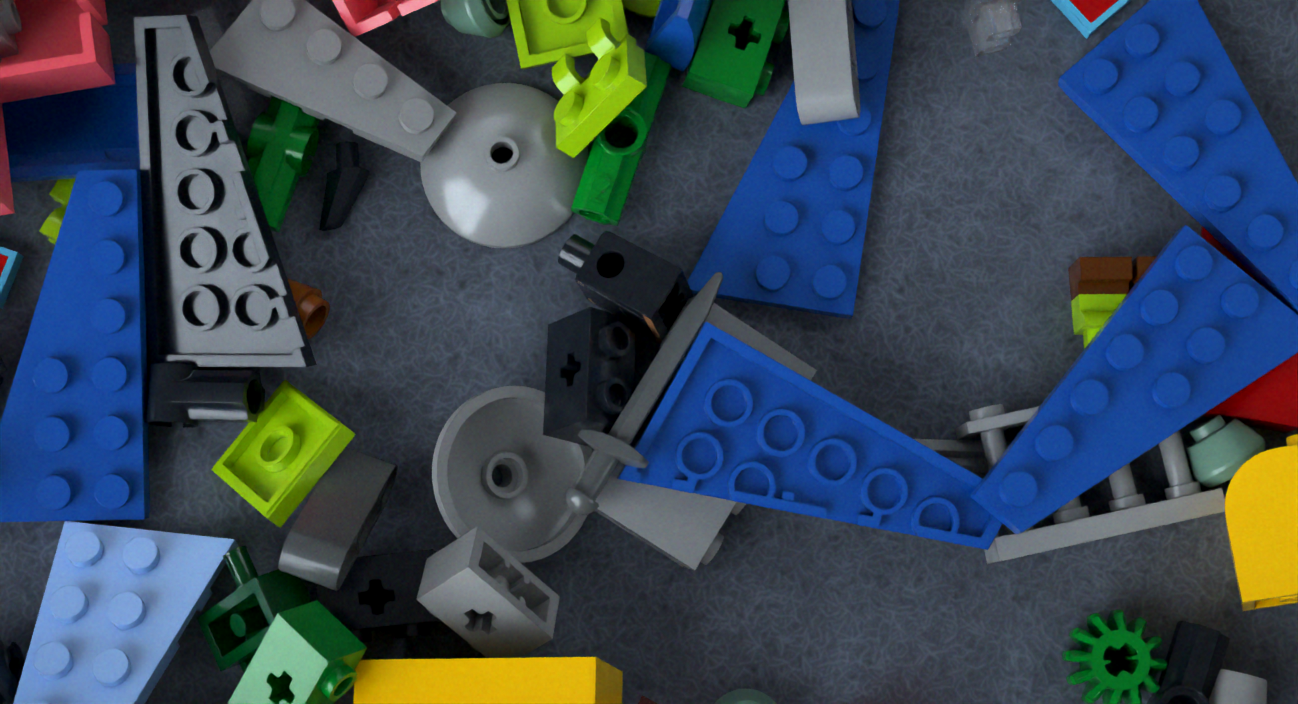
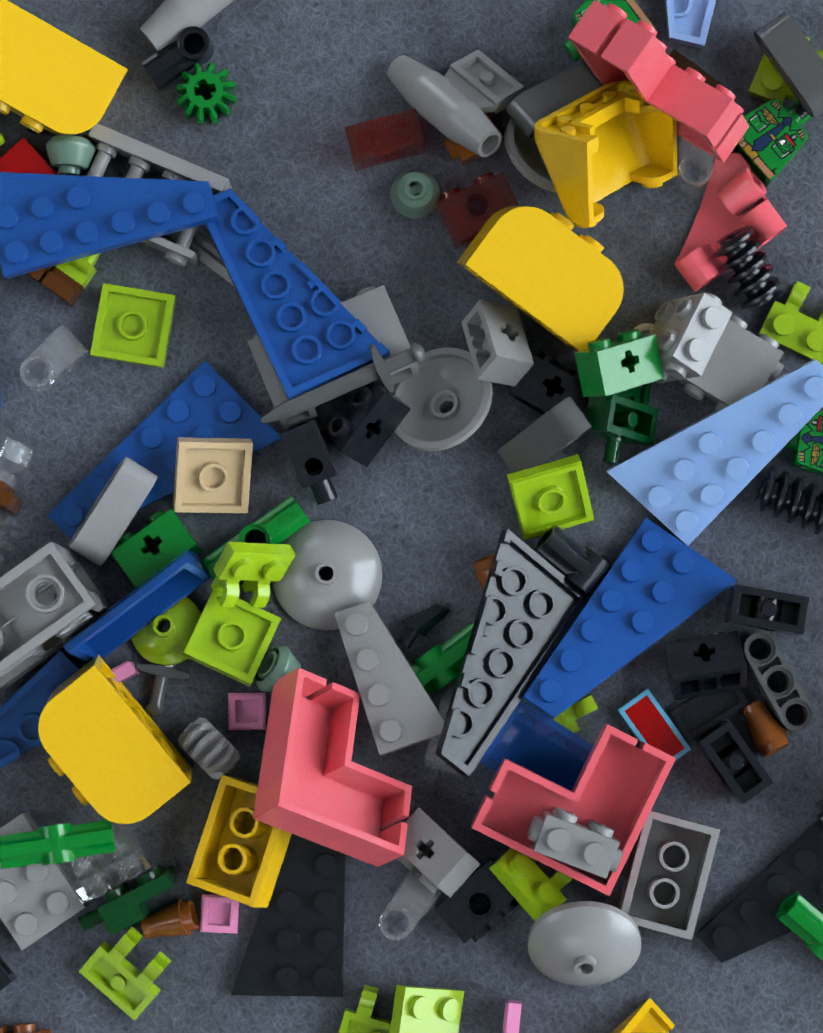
camera: 140 degrees left, 5 degrees up
(734, 175) = (212, 475): none -> tan plate
(975, 294) = (133, 325): none -> lime plate
(1041, 186) = (58, 356): none -> clear piece

